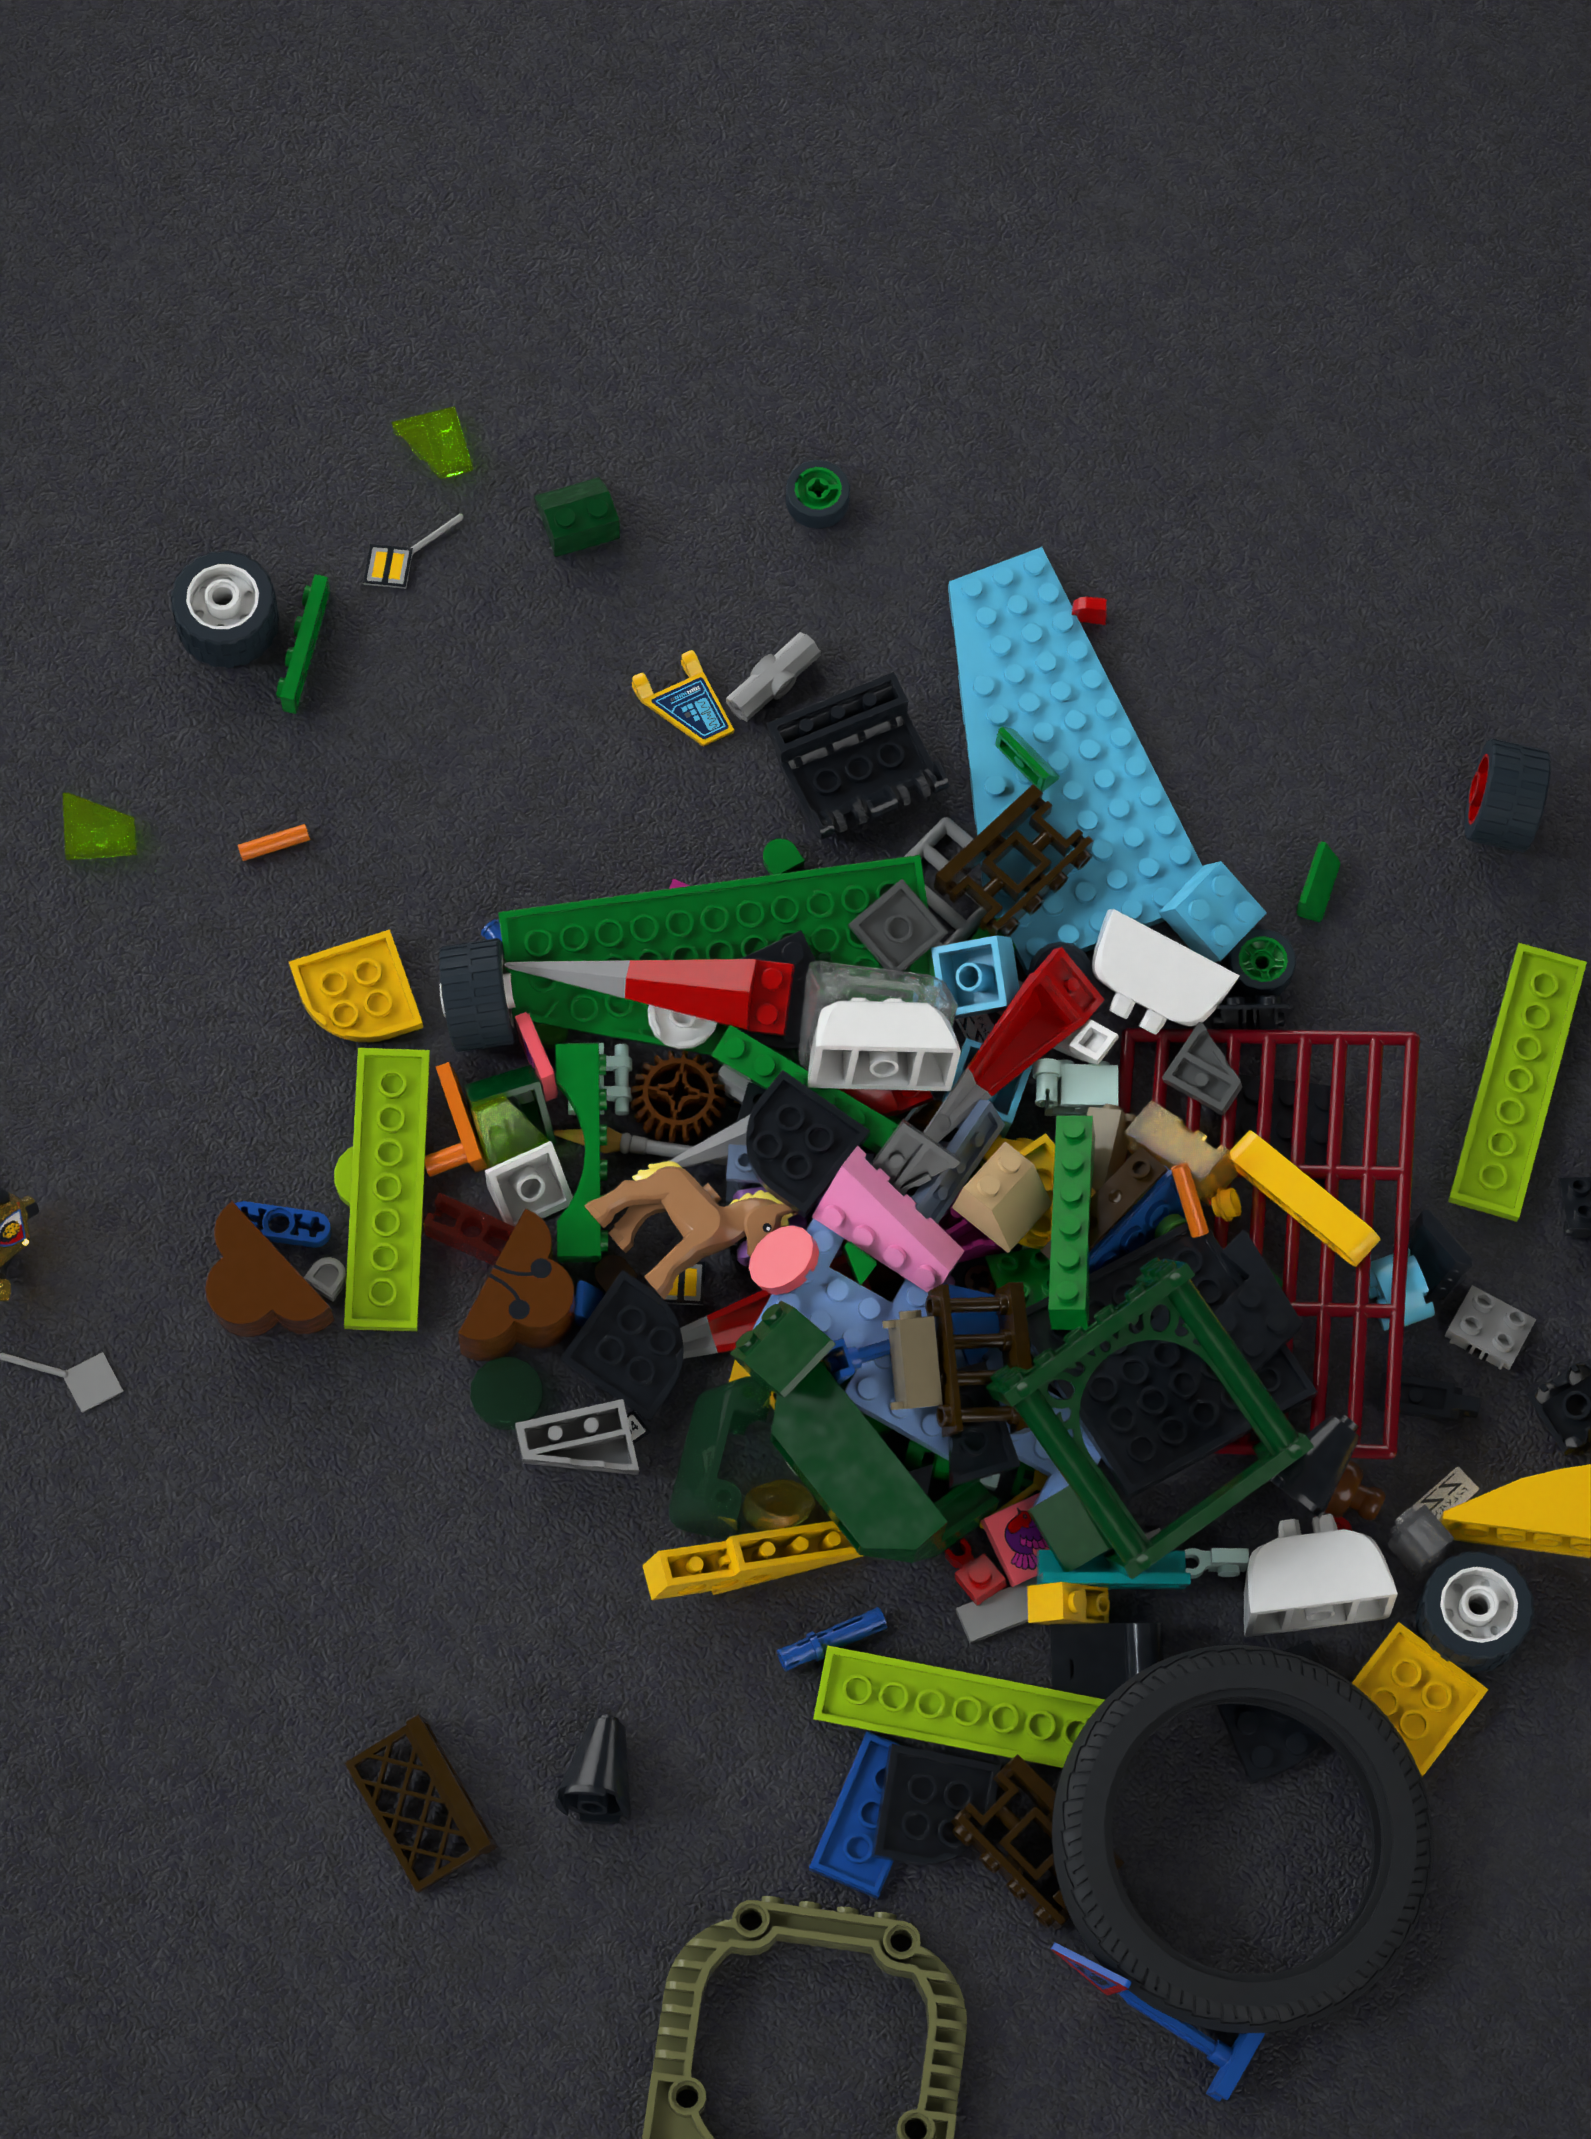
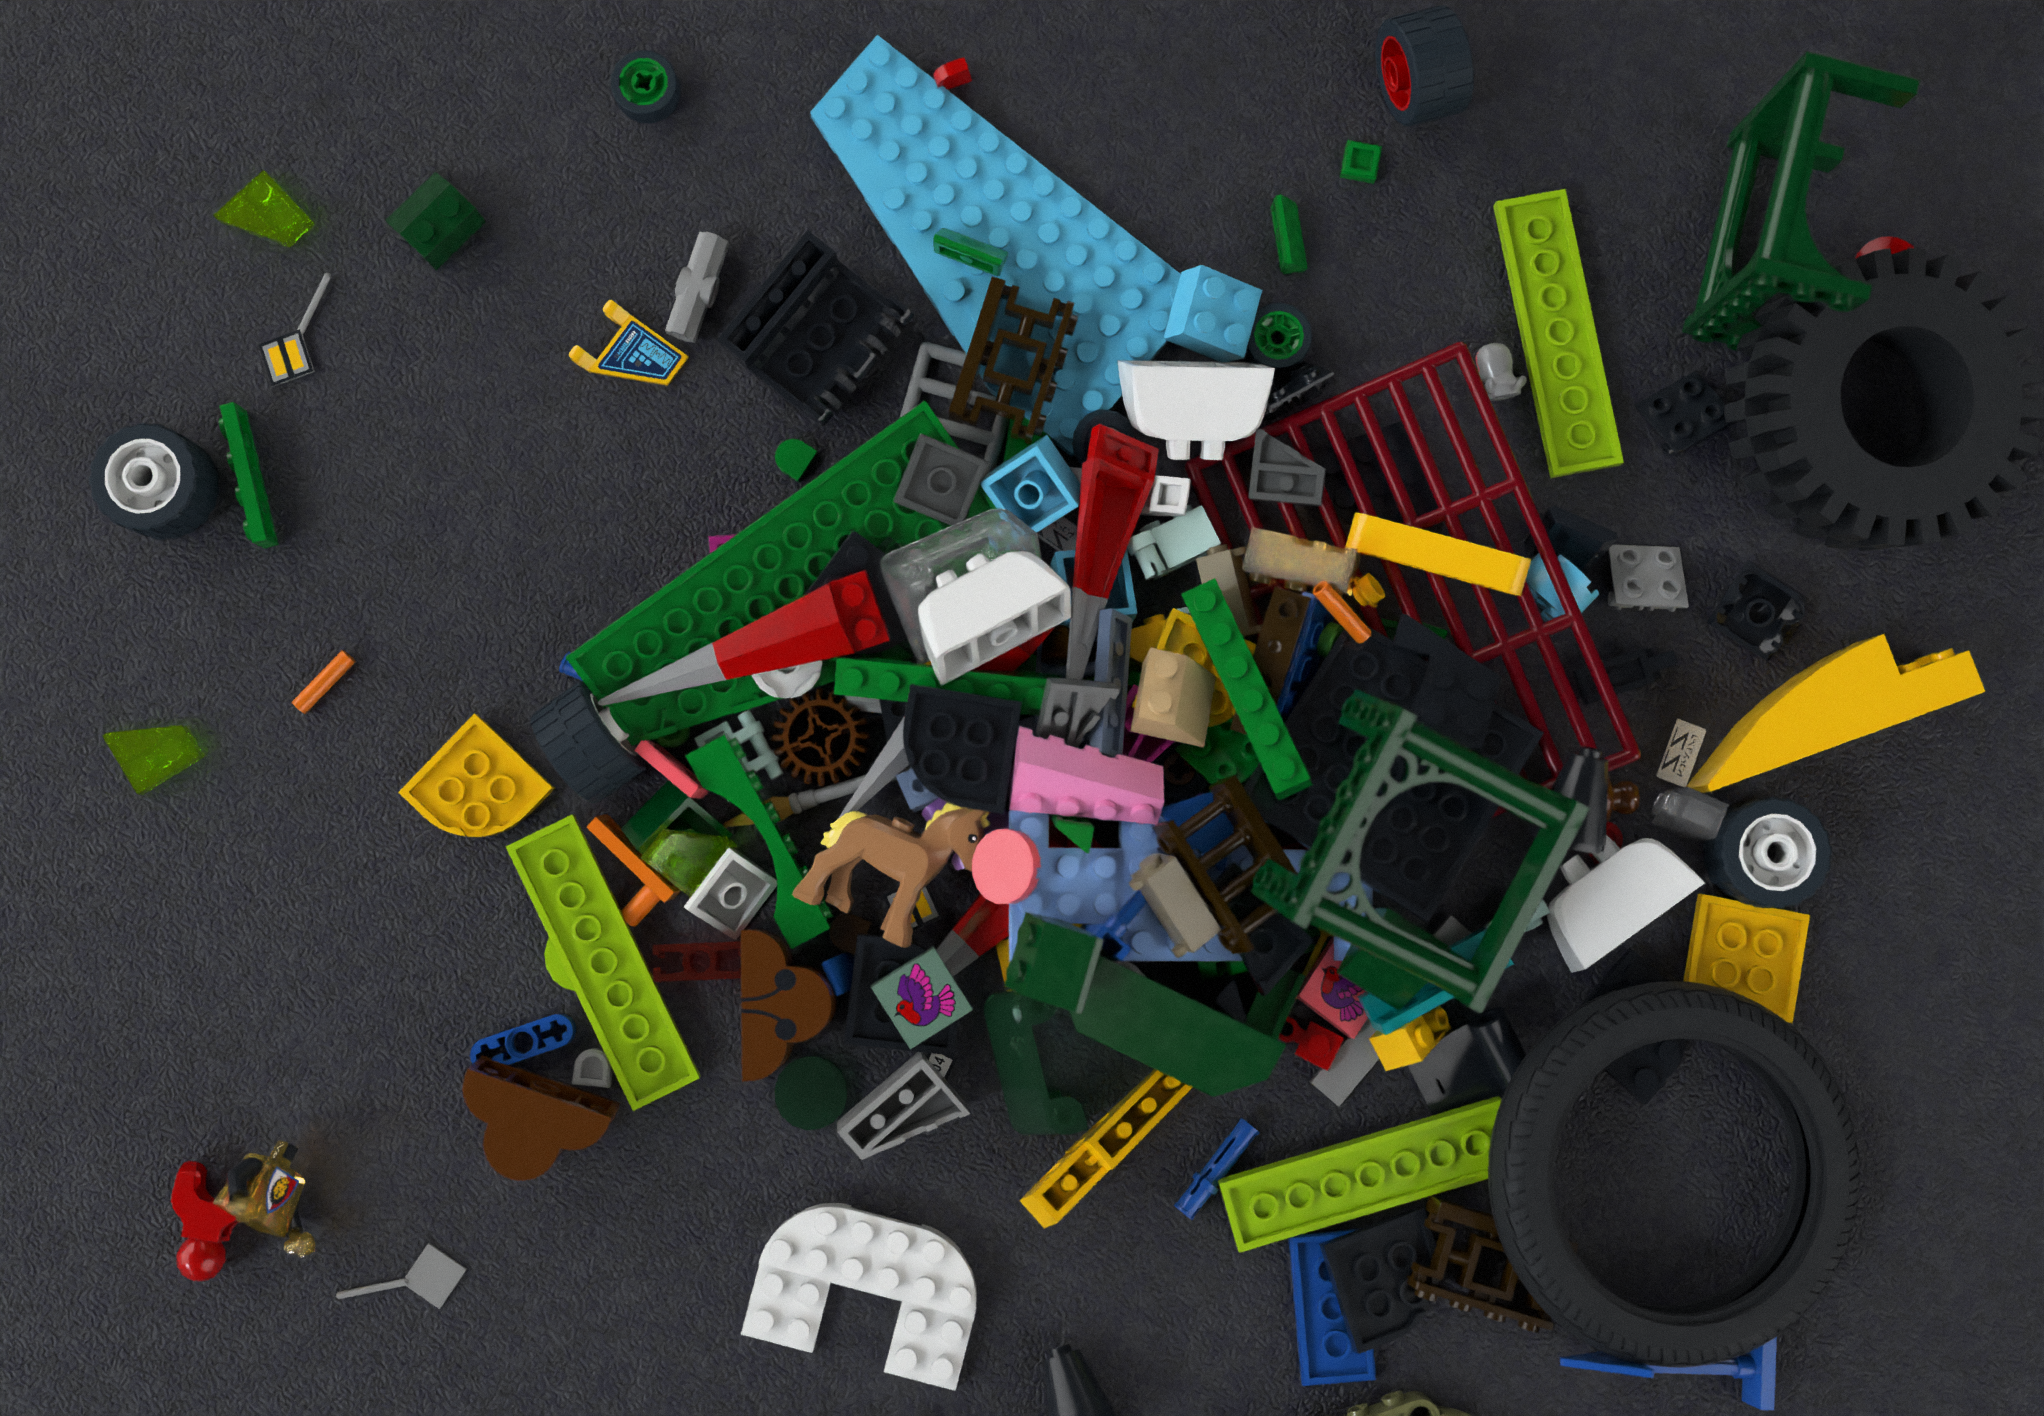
camera: 25 degrees left, 15 degrees up
(486, 1554) = (876, 1257): none -> white plate
(649, 1351) = (921, 997): none -> tile
(777, 1505) = (1106, 1077): clear yellow hat -> none
(1416, 854) = (1360, 161): none -> green tile
(1443, 1086) = (1496, 370): none -> light grey animal

